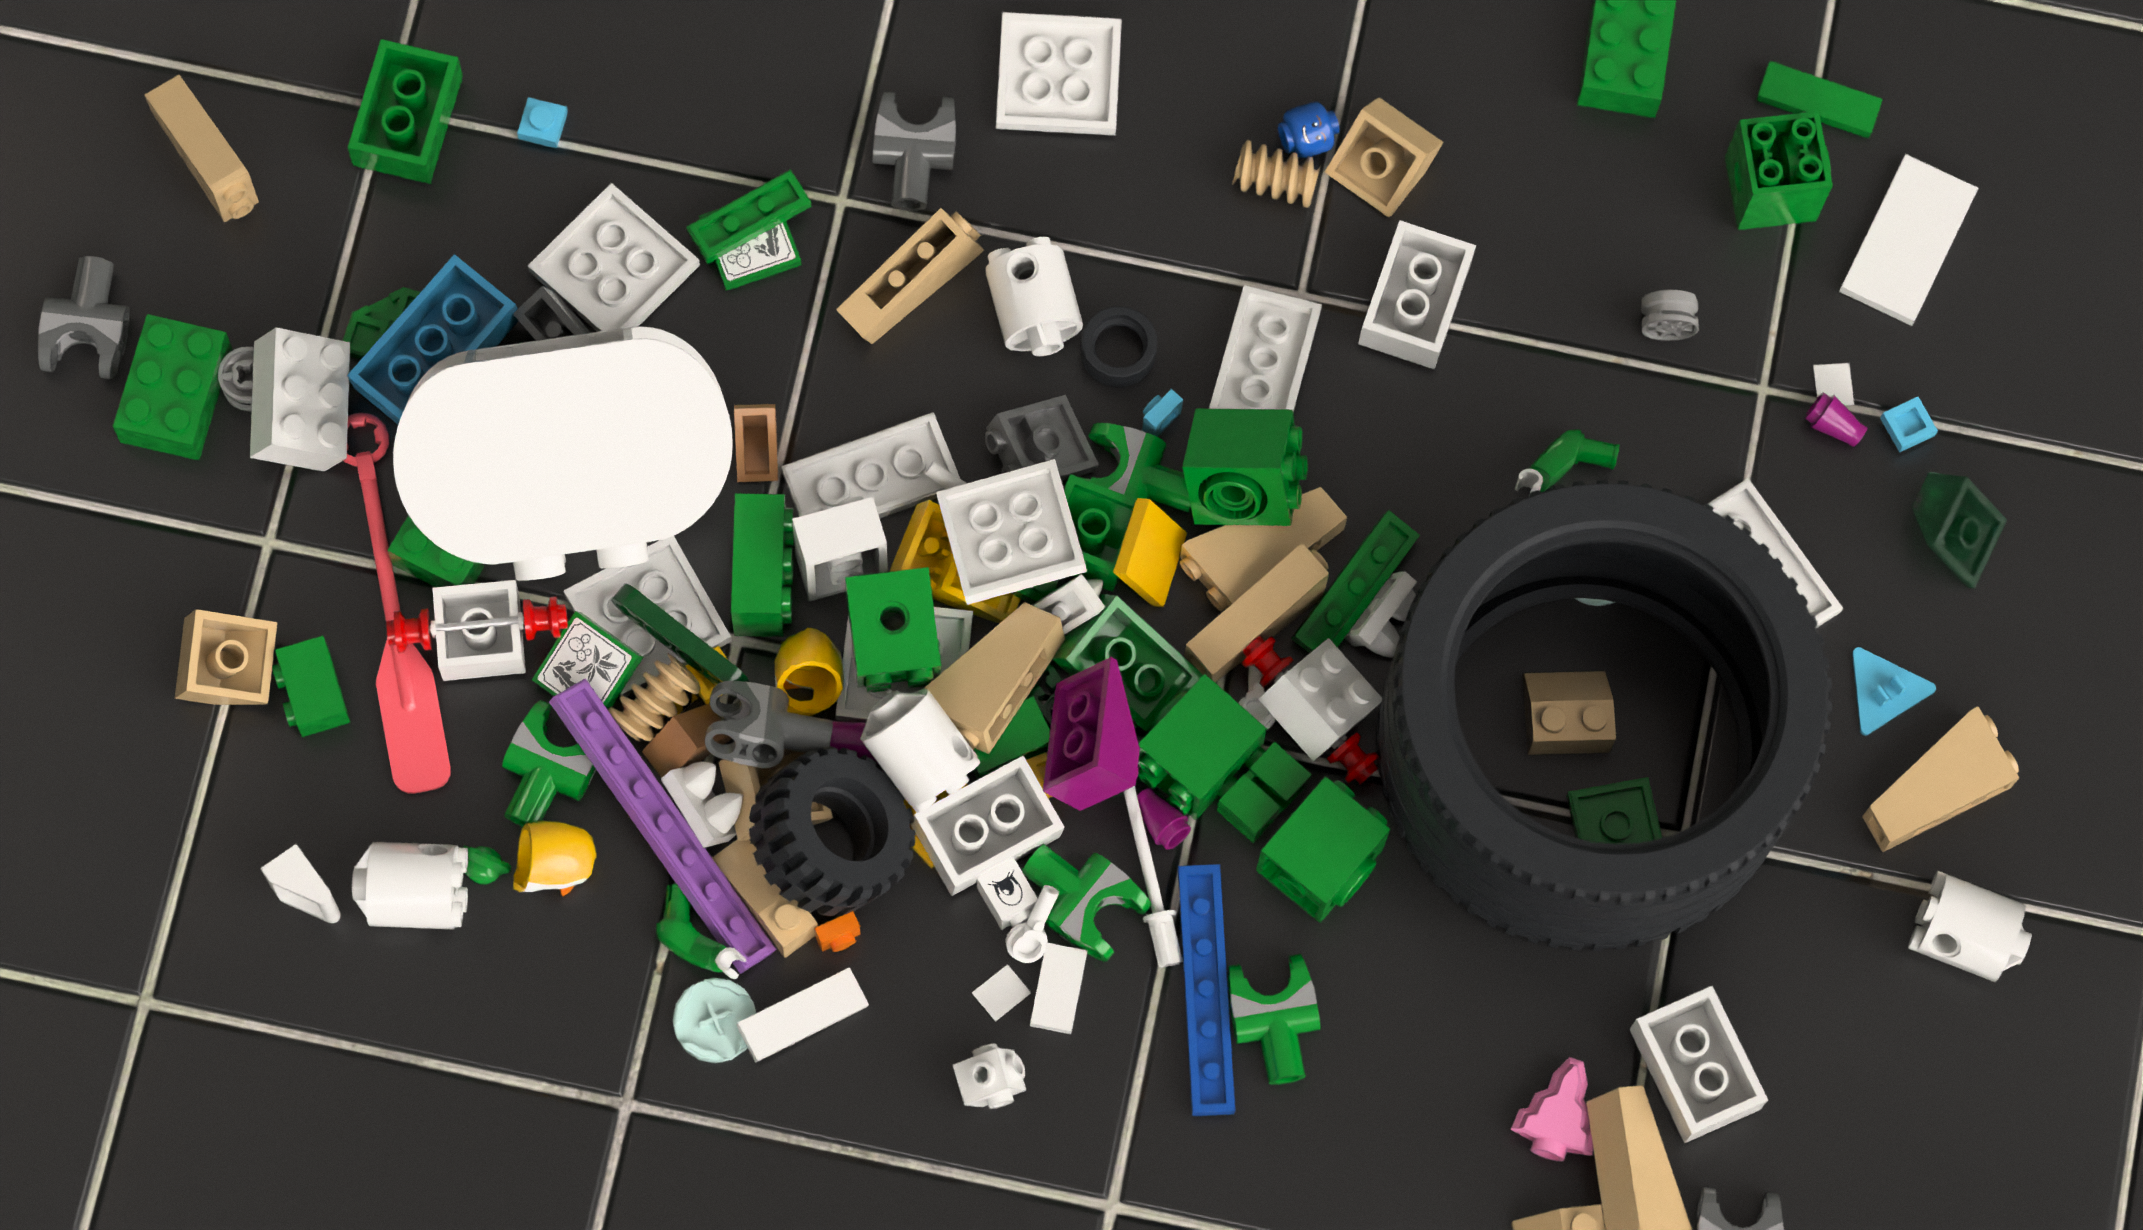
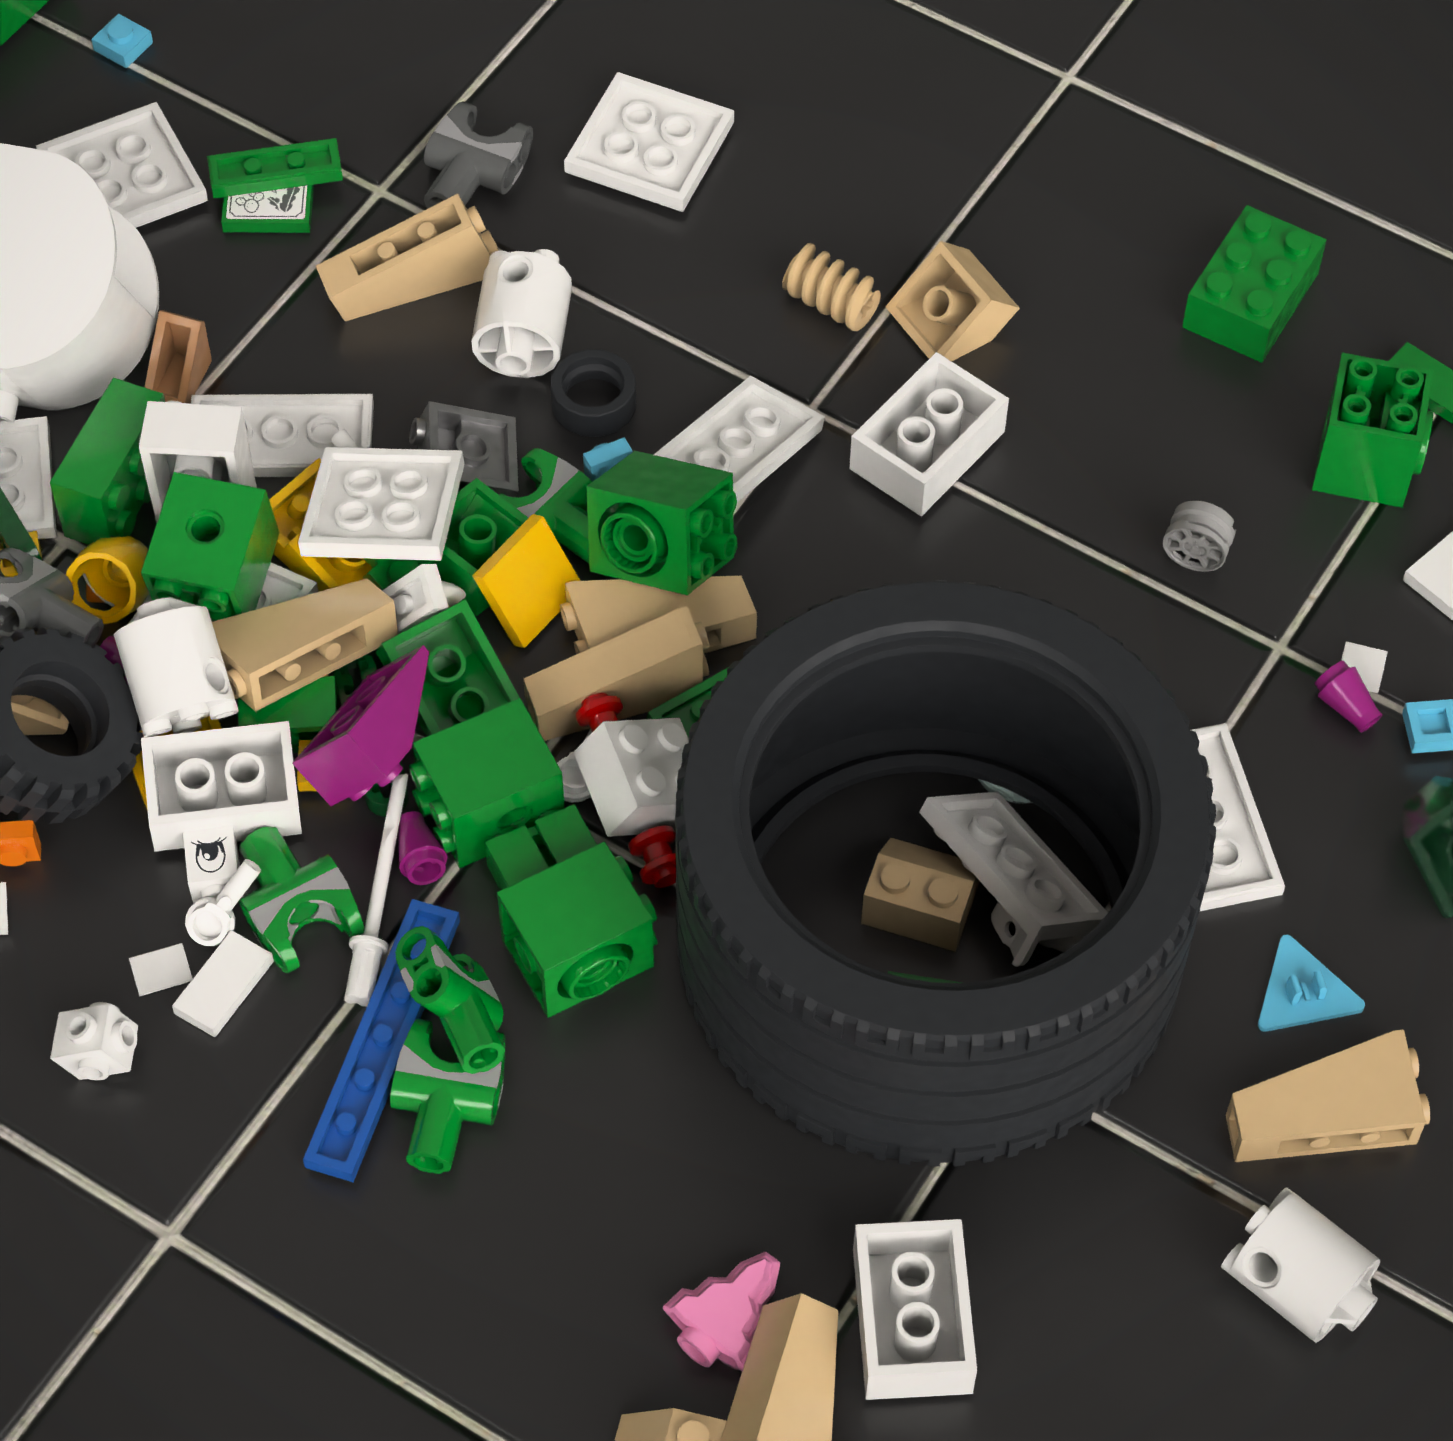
camera: 25 degrees right, 15 degrees down
(1259, 942) = (457, 996): none -> green connector
(1308, 130) = (883, 256): blue head -> none
(1640, 675) = (1017, 870): none -> white plate

